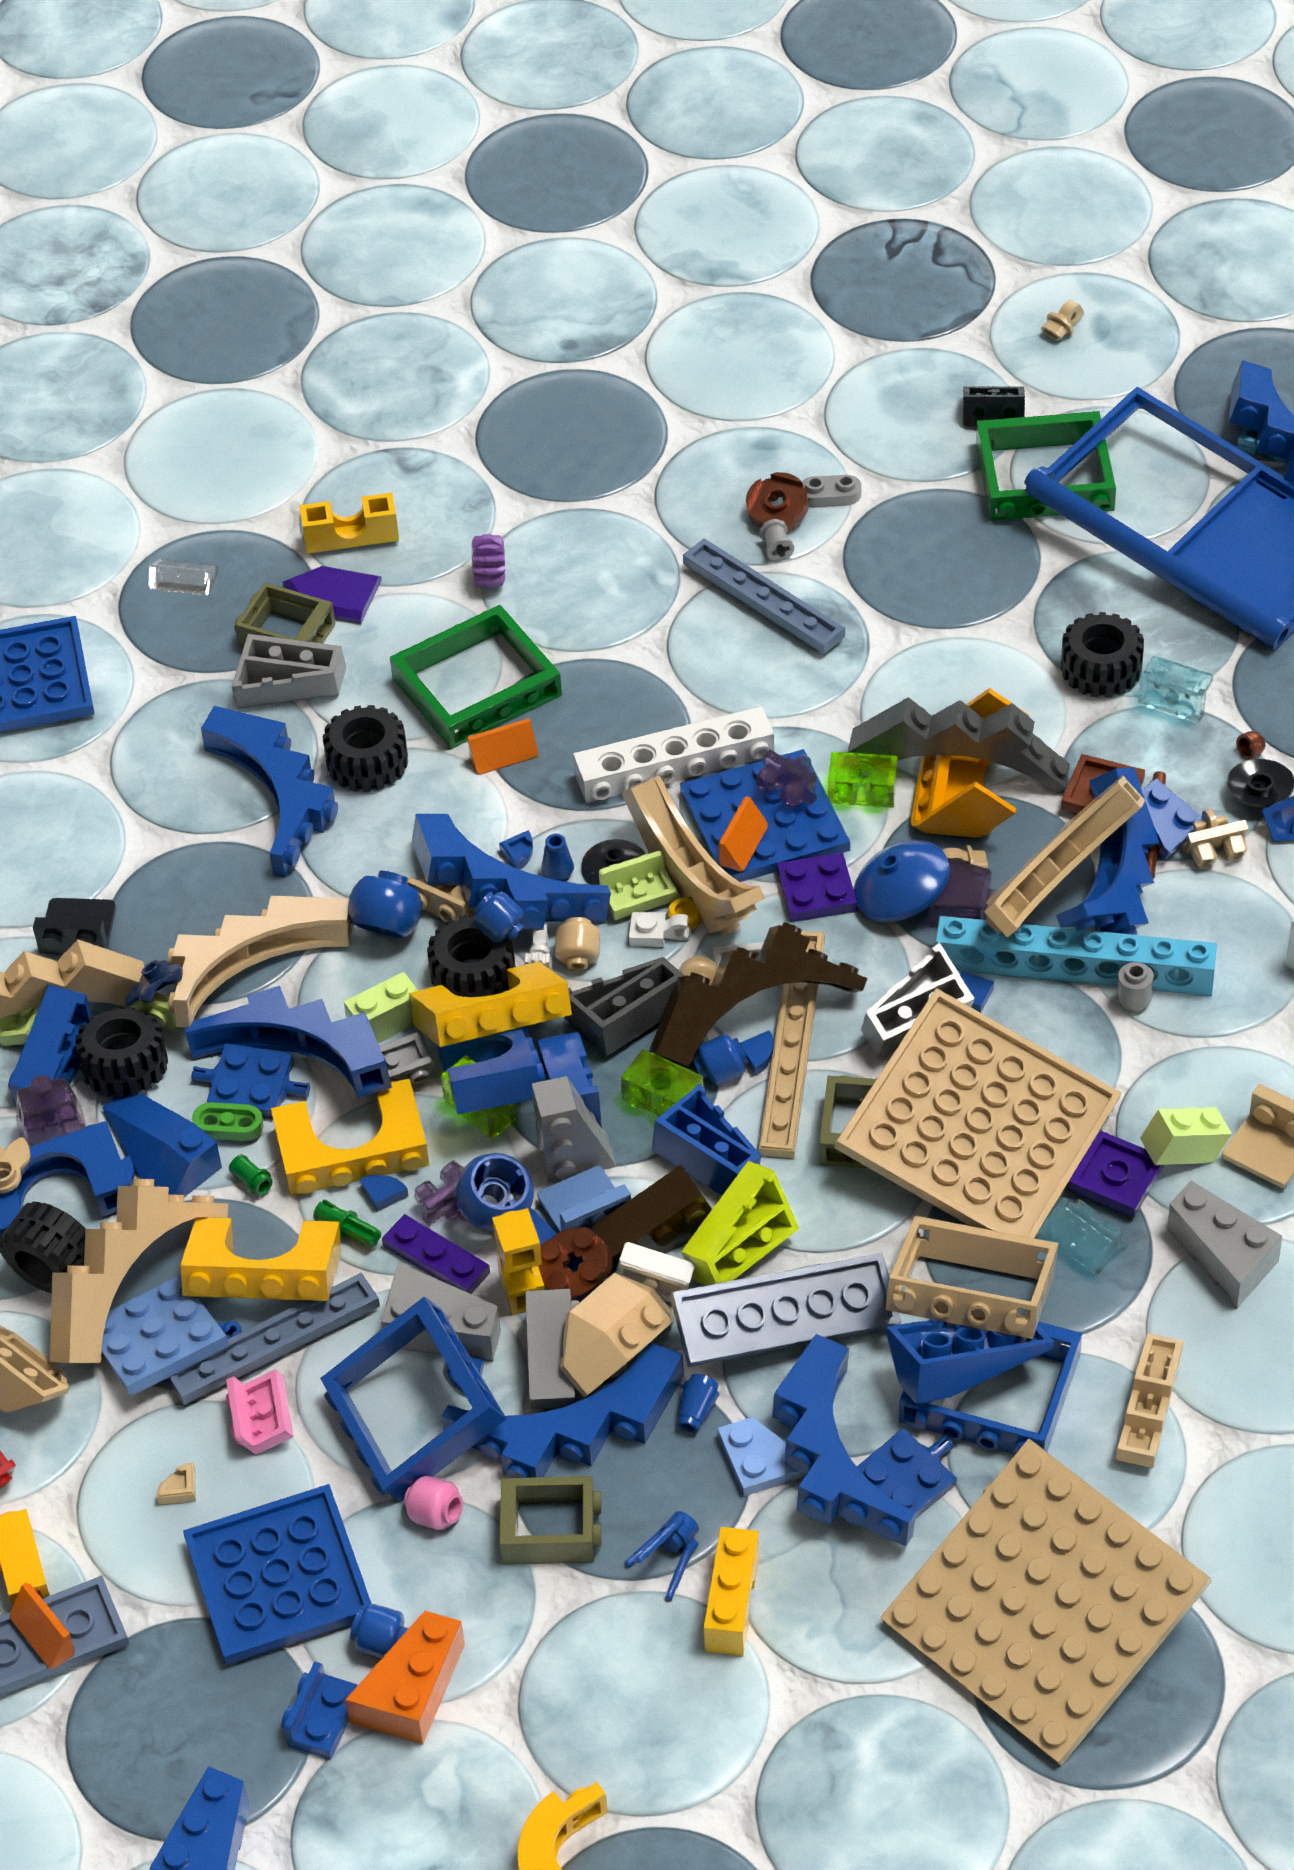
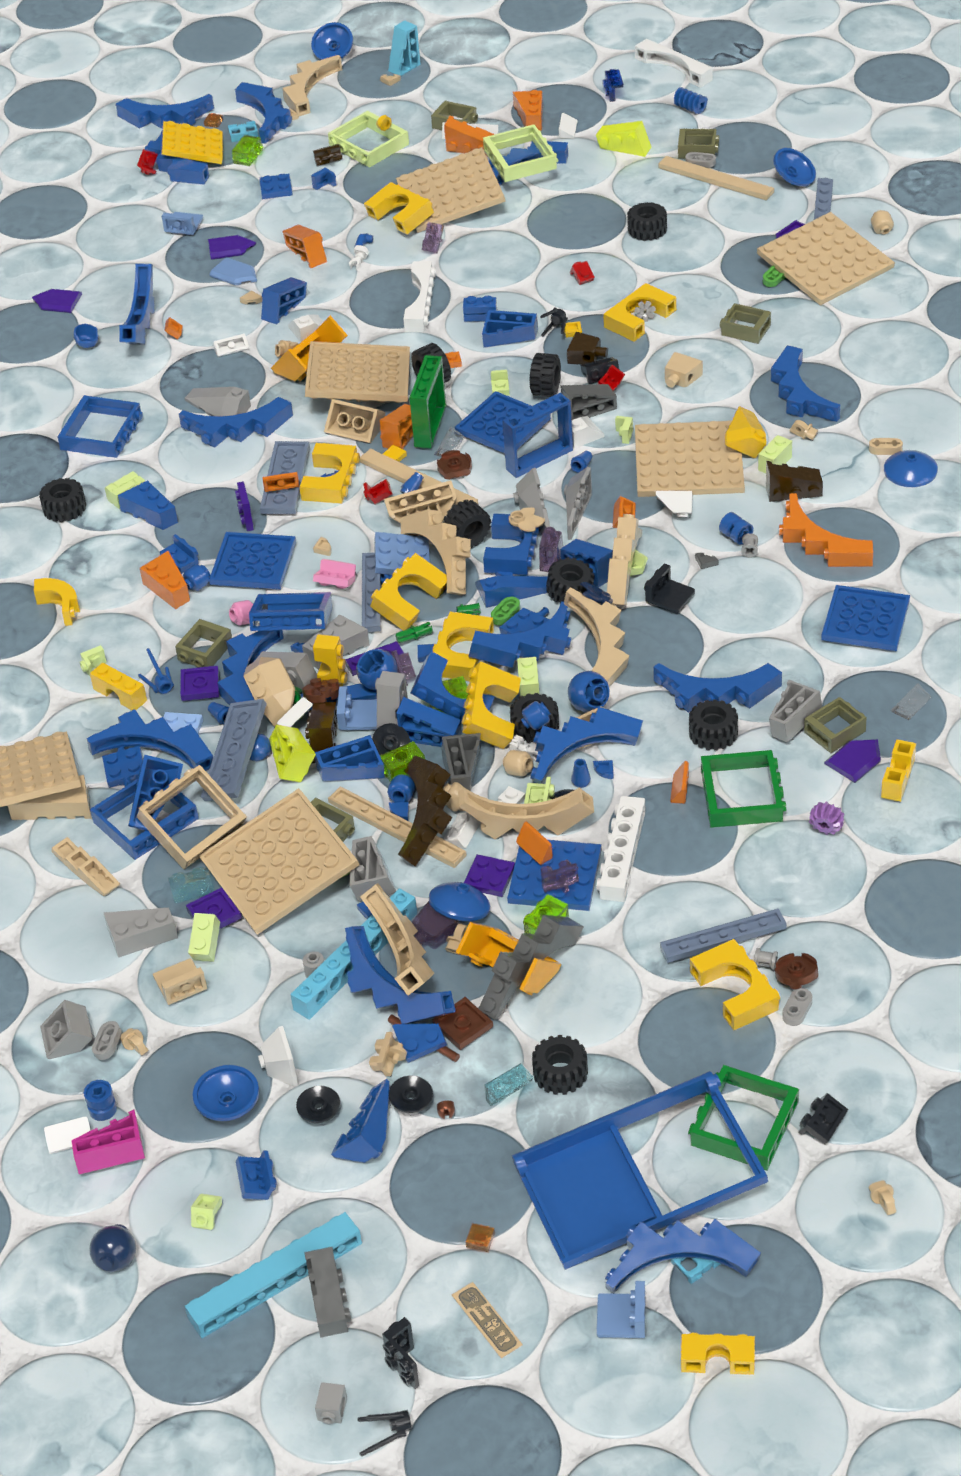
camera: 120 degrees right, 5 degrees down
(146, 1647) = (244, 506): none -> dark purple plate
(628, 1120) = (390, 732): none -> black dish
(644, 1475) = (199, 683): none -> dark purple plate
(684, 1684) = (92, 658): none -> yellowish green bracket
(845, 520) = (731, 960): none -> yellow arch

